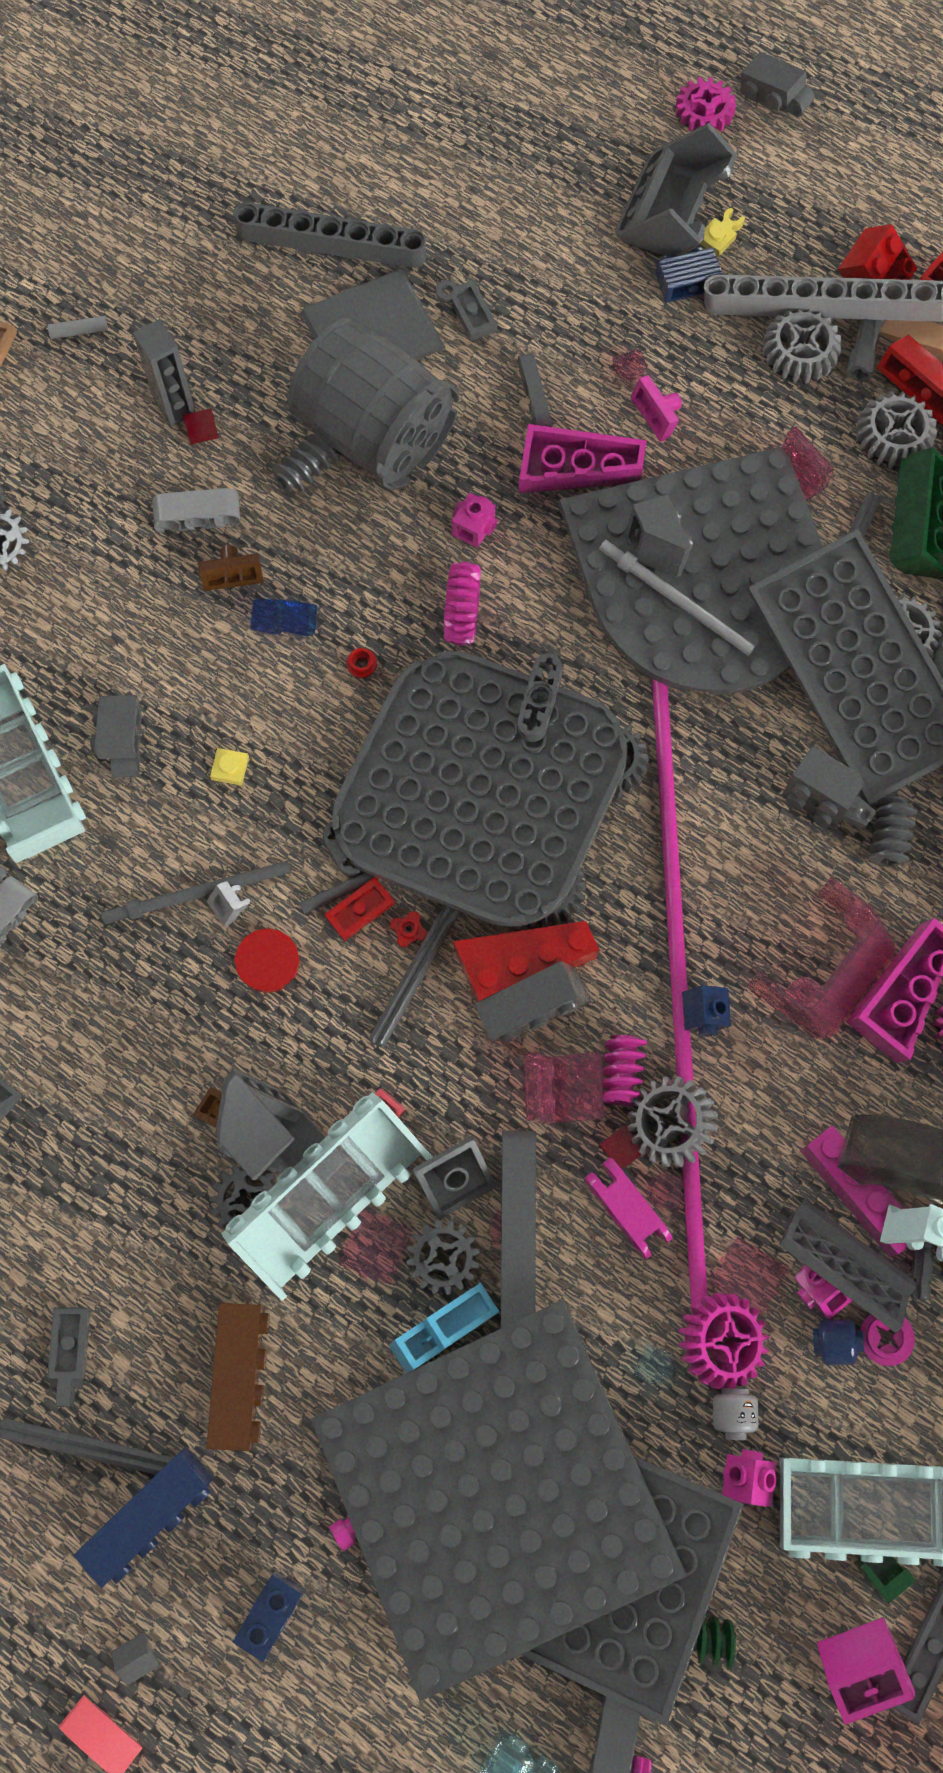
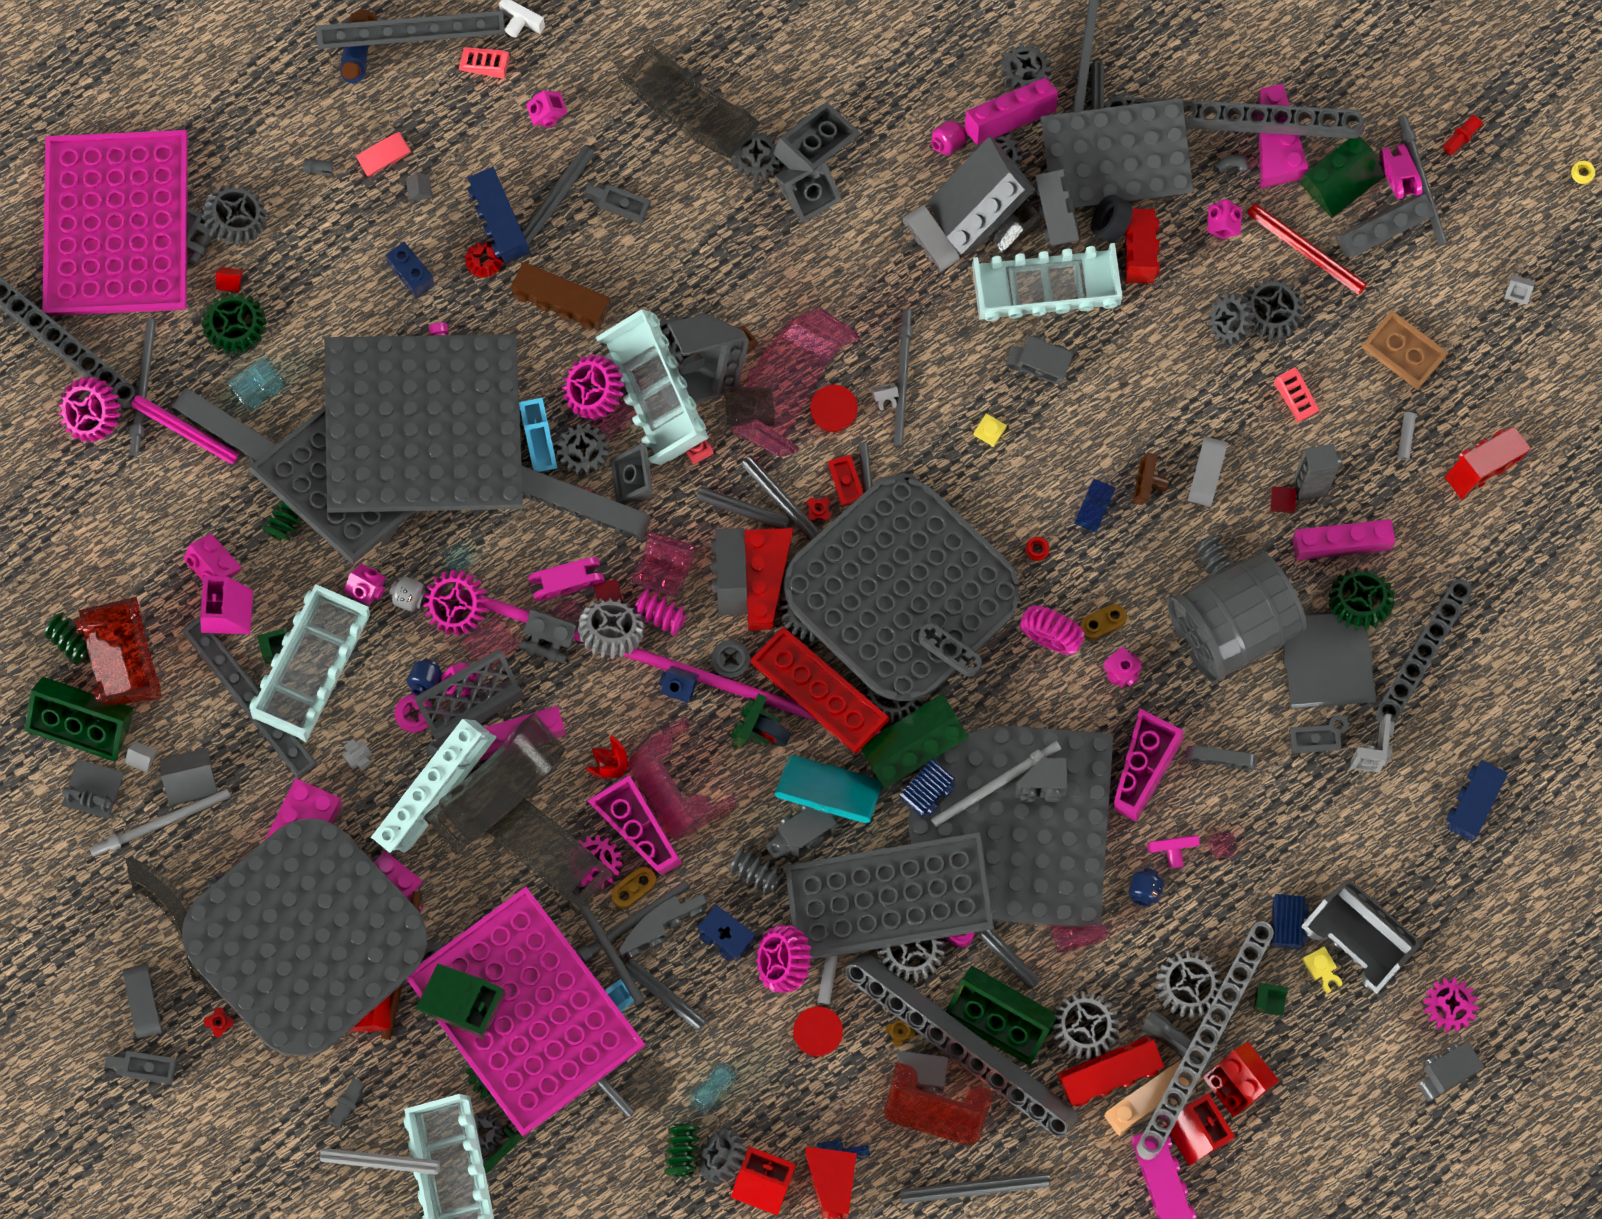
camera: 110 degrees right, 0 degrees up
(65, 463) = (1303, 391): none -> coral slope
(84, 234) = (1487, 460): none -> wedge
(227, 1525) = (490, 266): none -> red gear
(229, 346) = (1343, 539): none -> dark pink brick
(255, 1034) = (791, 370): none -> clear pink piece
(294, 296) = (1364, 590): none -> dark green gear
(308, 1058) = (748, 404): none -> clear smoke tile
(379, 1277) = (597, 371): none -> dark pink gear
(421, 563) = (1104, 622): none -> pearl gold plate
(442, 1024) = (742, 508): none -> dark grey axle
(457, 236) = (1367, 756): none -> light grey bracket
(475, 141) = (1475, 800): none -> dark blue brick
(644, 838) = (819, 690): none -> red plate
(657, 957) = (729, 648): none -> dark grey gear
(664, 705) = (914, 741): none -> dark green slope
(704, 1204) = (549, 628): none -> dark grey plate
(716, 417) = (1146, 887): none -> dark blue head
(718, 665) = (927, 789): none -> dark blue brick
(720, 895) = (759, 726): none -> dark green plate
(769, 776) = (828, 788): none -> teal piece
(778, 265) = (1270, 999): none -> dark green panel
(803, 1724) = (210, 558): none -> dark pink bracket
(841, 1055) = (611, 762): none -> red piece

